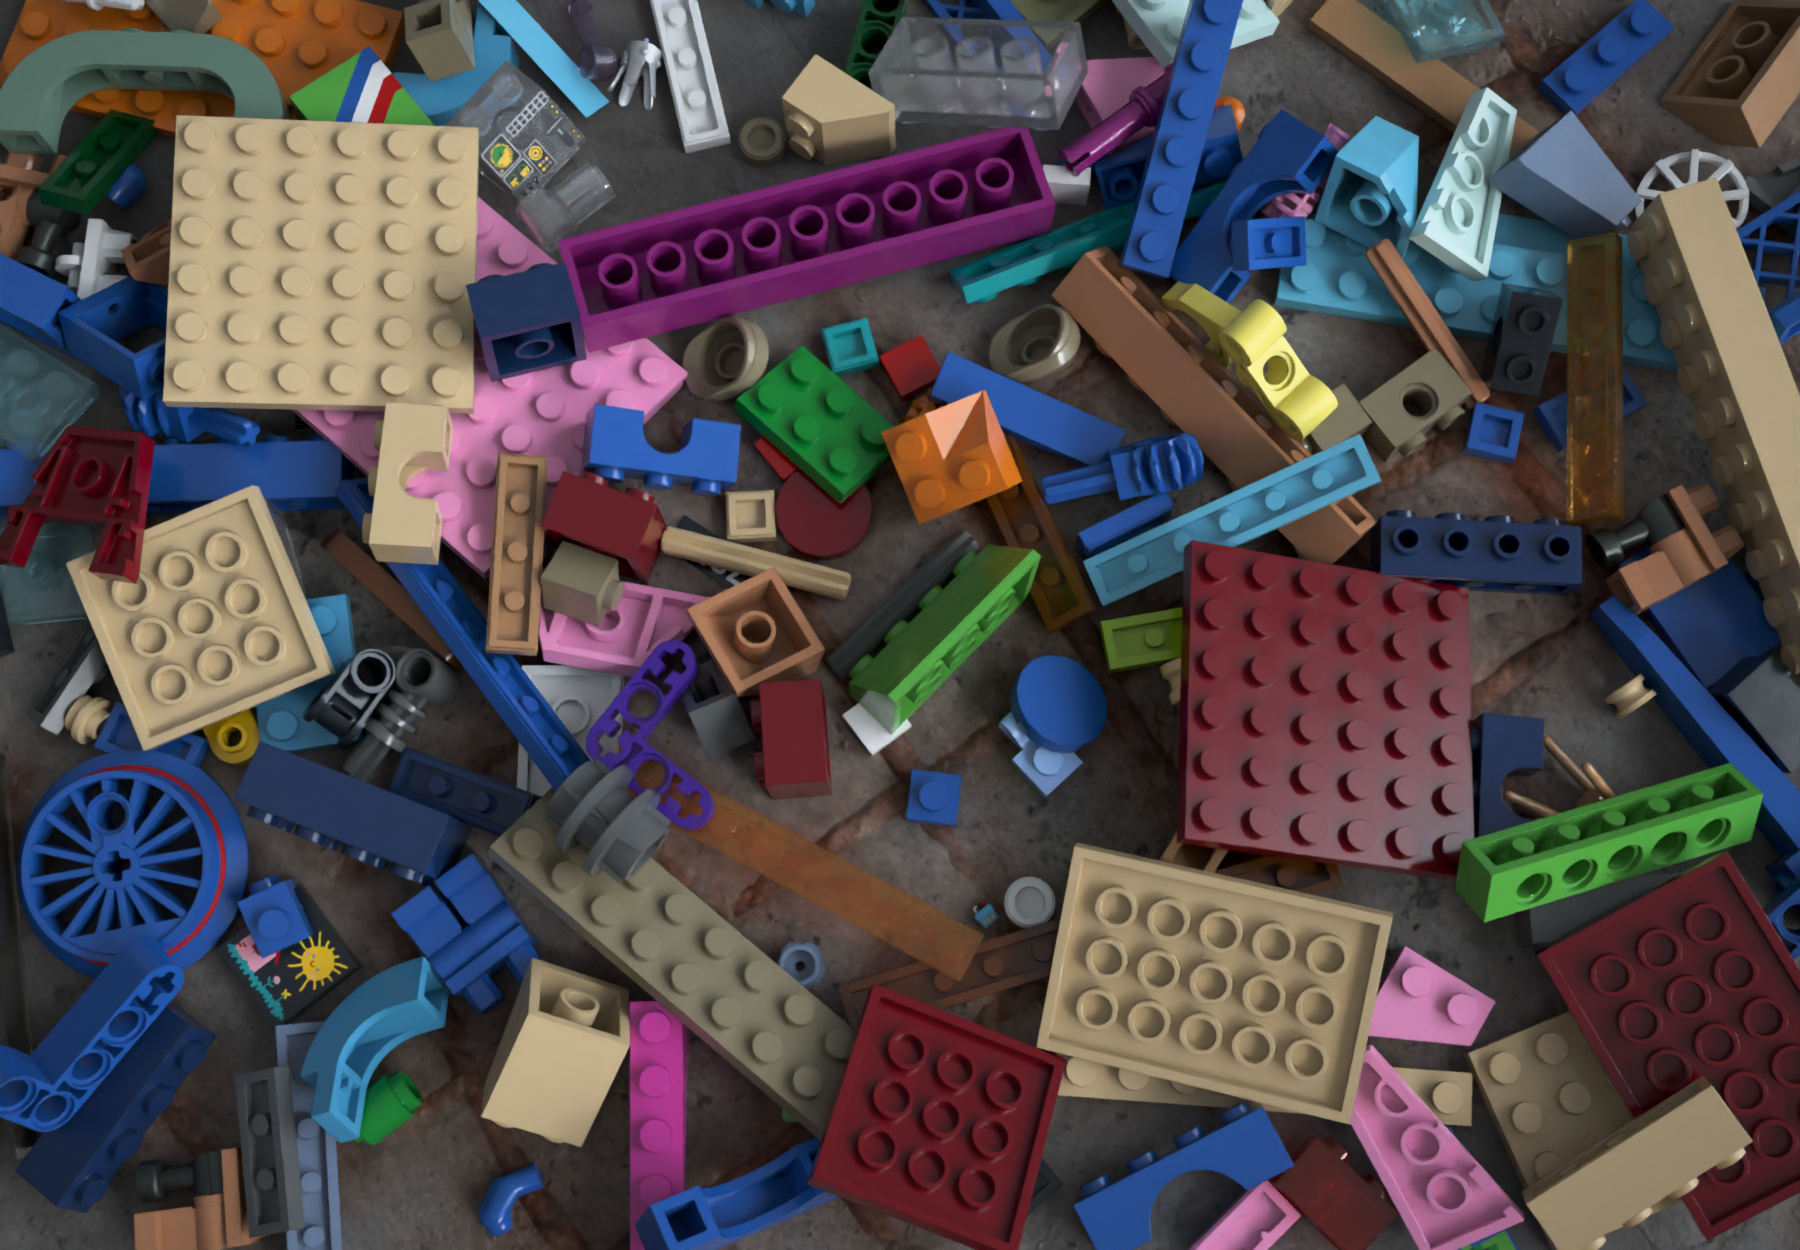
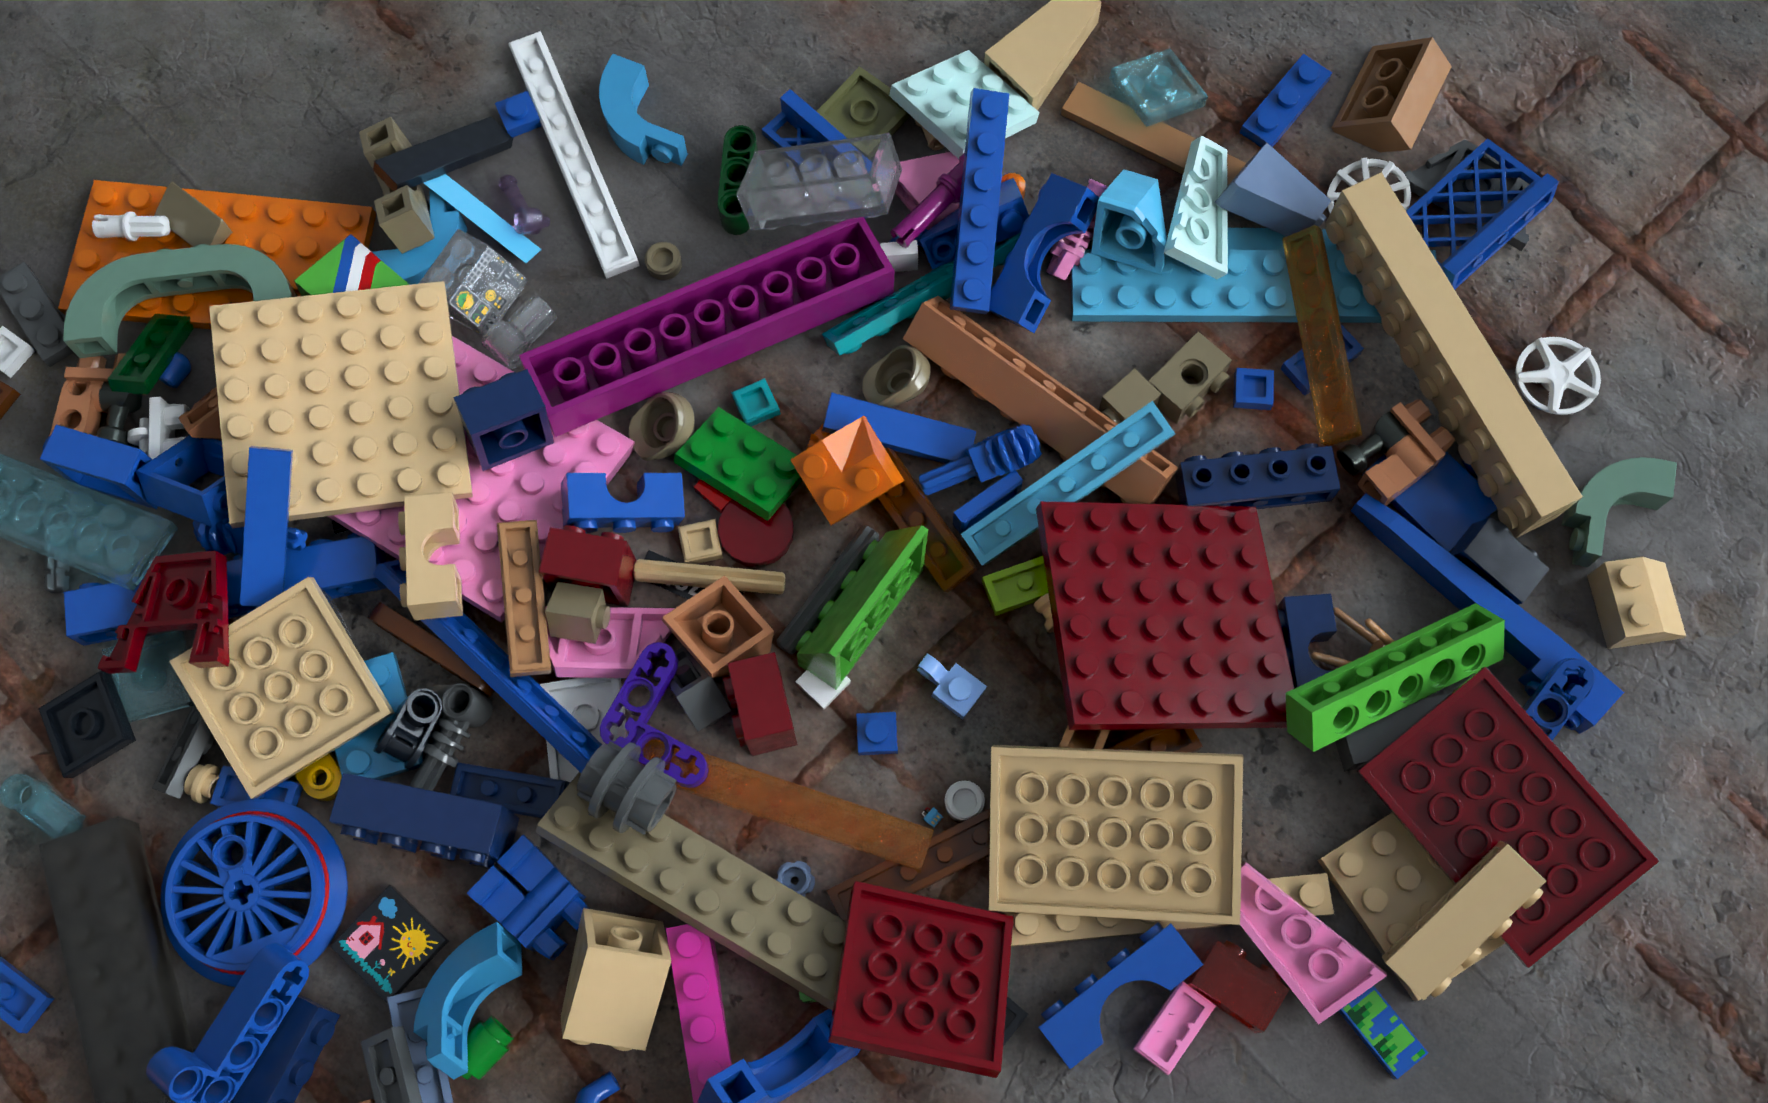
camera: 10 degrees left, 5 degrees down
(208, 410) = (266, 524): none -> blue tile
(274, 915) = (373, 911): blue bracket -> none
(639, 60) = (560, 214): flat silver piece -> none
(836, 116) = (717, 232): tan slope -> none
(910, 367) = (804, 411): red tile -> none
(1058, 703) = (960, 644): blue tile -> none
(1249, 340) = (1058, 345): light yellow piece -> none
(1268, 243) = (1059, 273): blue plate -> none
(1423, 315) = (1185, 309): nougat axle -> none
(1427, 1004) = (1282, 826): bright pink wing -> none
(1521, 339) = (1261, 315): black brick -> none
(1630, 696) = (1392, 567): tan bush -> none

